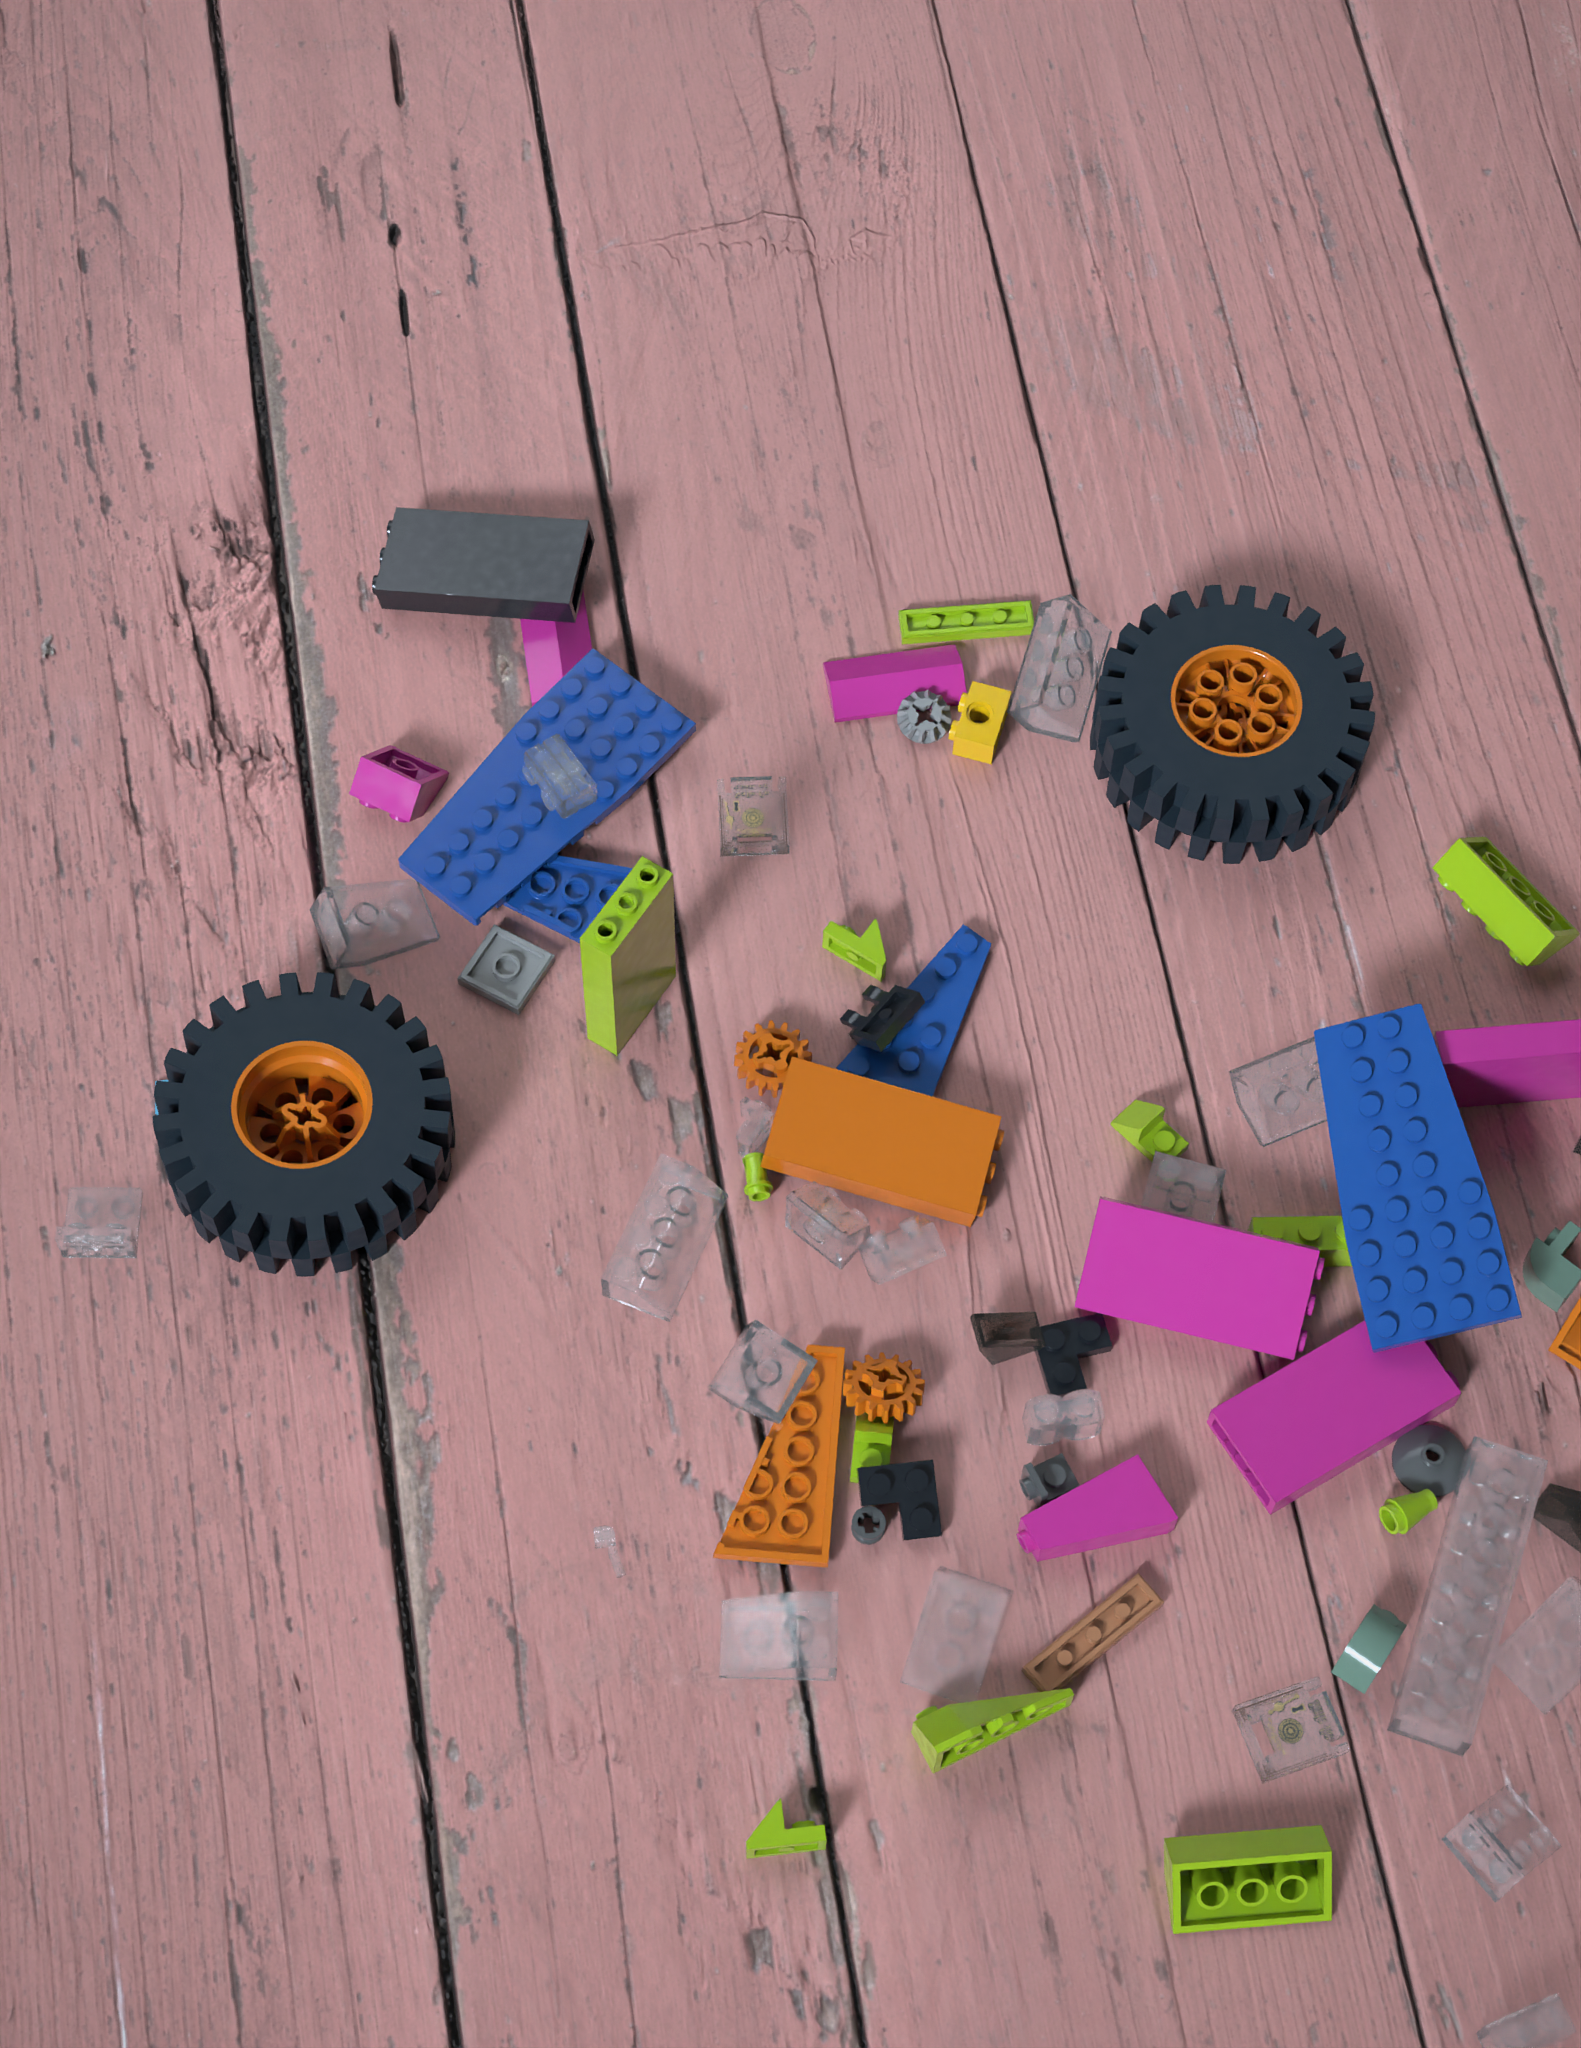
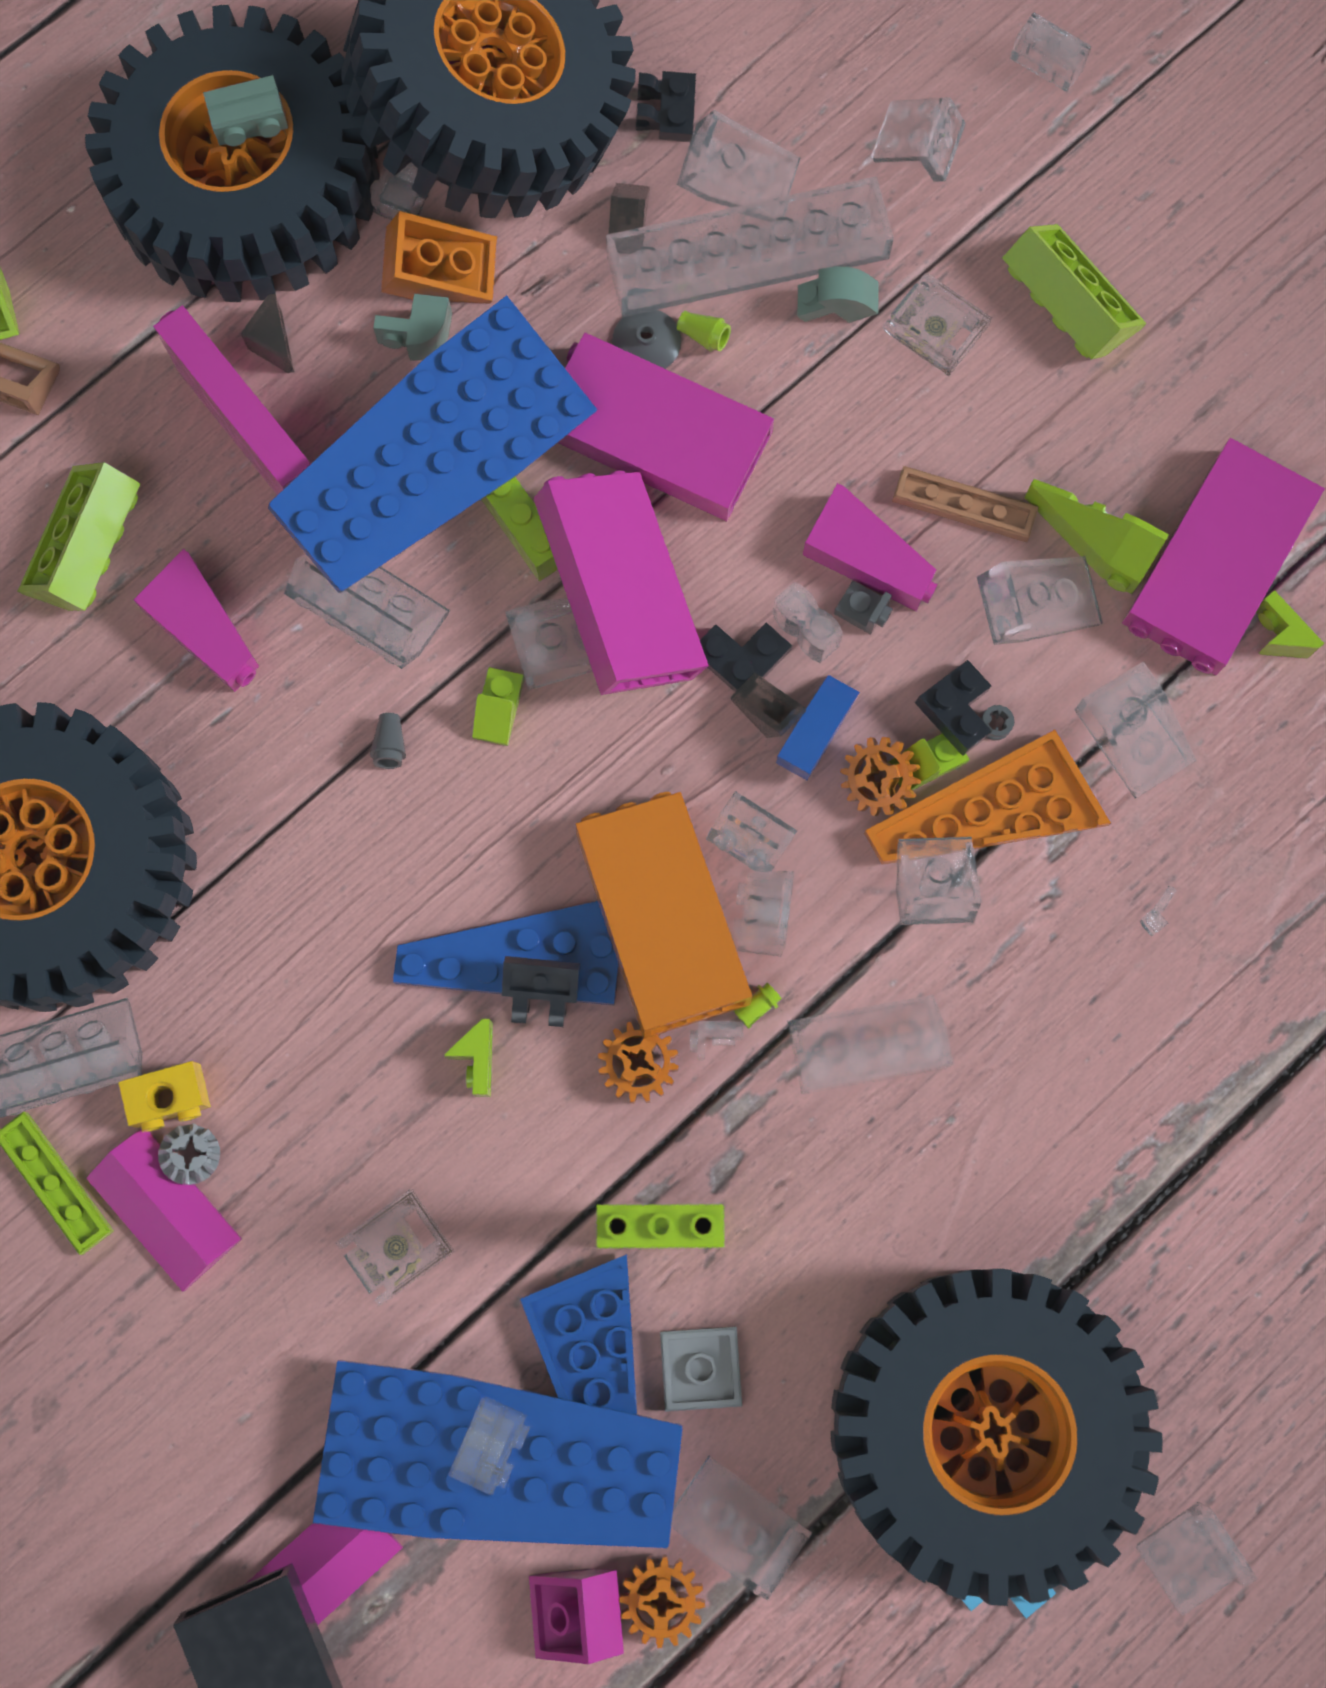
camera: 120 degrees left, 15 degrees up
(364, 842) = (681, 1601): none -> orange gear
(891, 1829) = (1223, 557): none -> dark pink brick
(962, 1368) = (817, 727): none -> blue slope
(1171, 1031) = (388, 742): none -> dark grey cone
(1370, 947) = (192, 615): none -> dark pink slope

